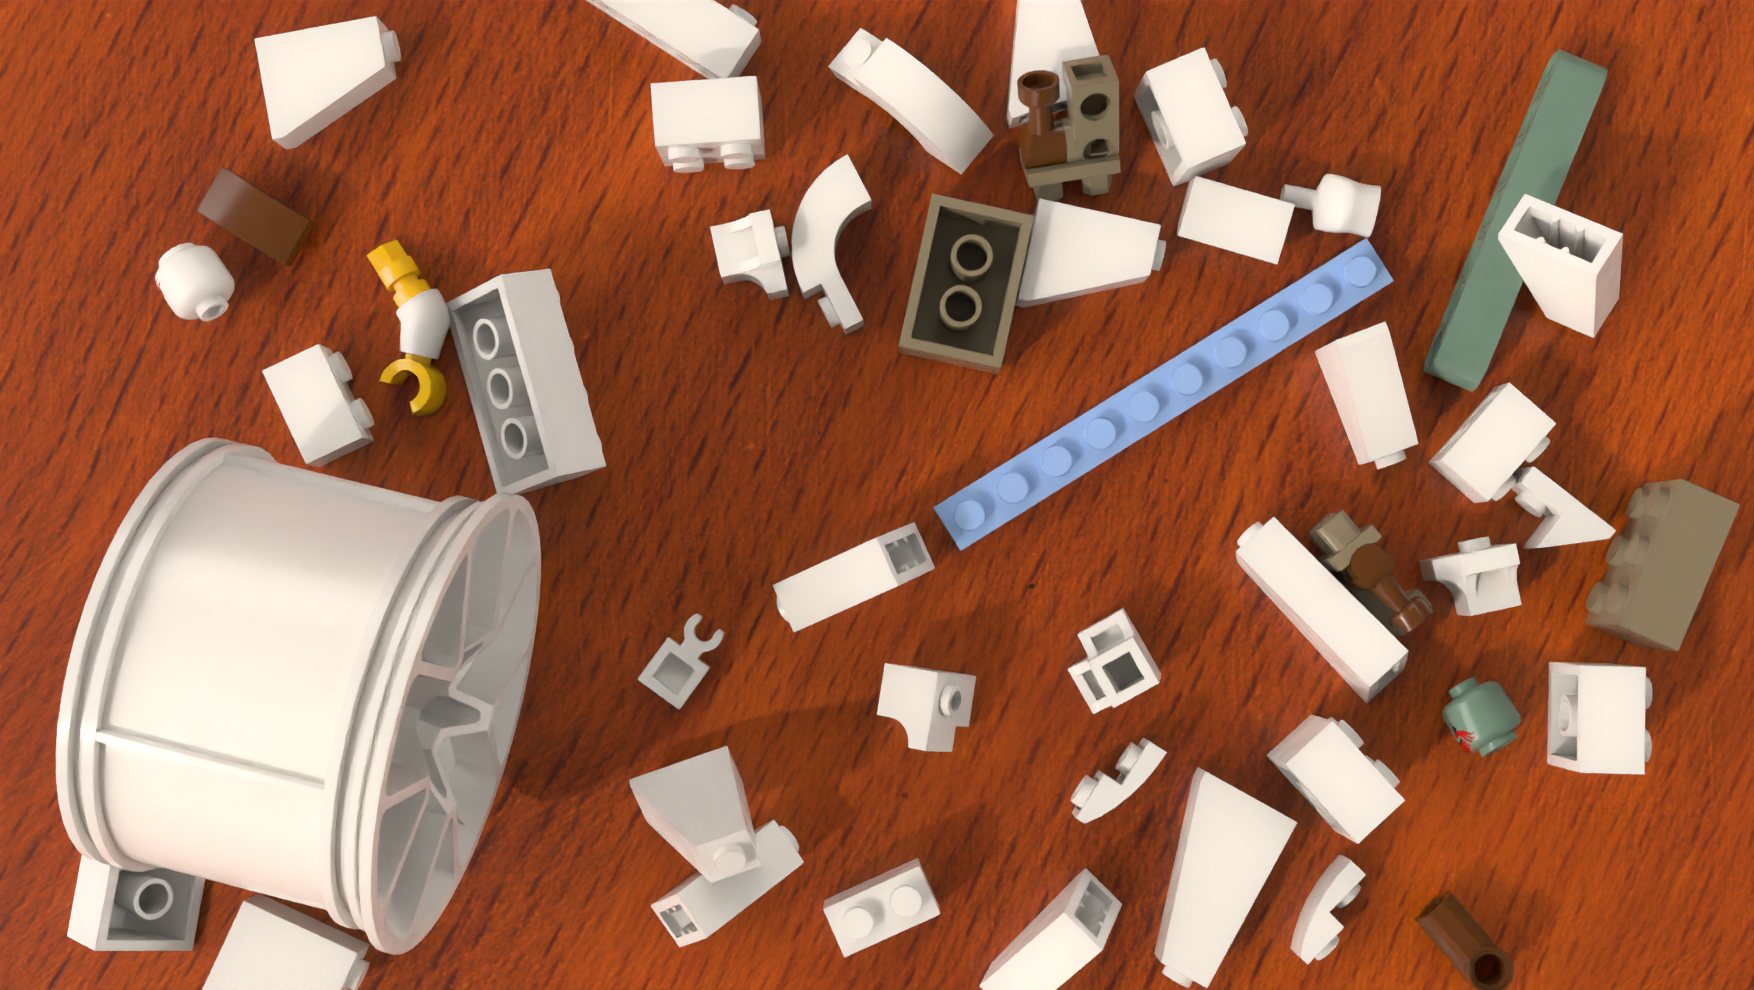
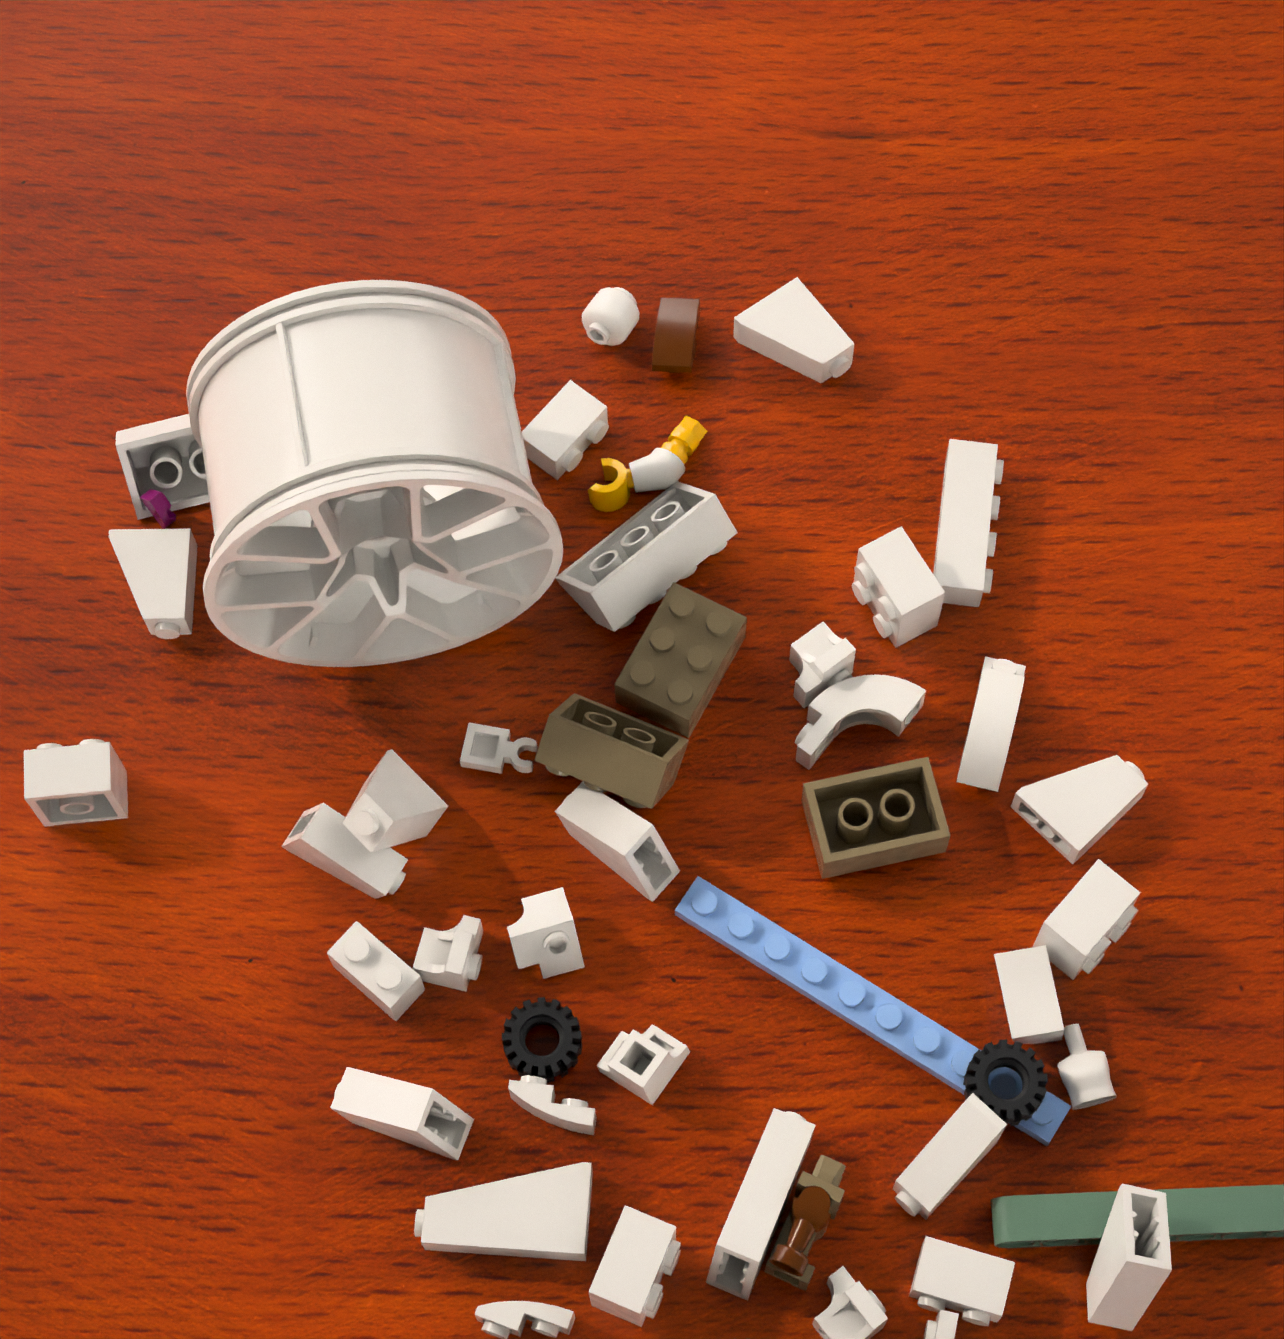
camera: 70 degrees right, 20 degrees down
(192, 923) = (159, 507): none -> magenta tile
(673, 406) = (680, 659): none -> dark tan brick
(755, 538) = (611, 751): none -> dark tan brick
(902, 818) = (450, 955): none -> white brick
(1069, 769) = (542, 1014): none -> black tyre
(1075, 146) = (1025, 849): dark tan hips -> none
(1085, 253) = (943, 896): white slope -> none
(1350, 282) = (1019, 1060): none -> black tyre

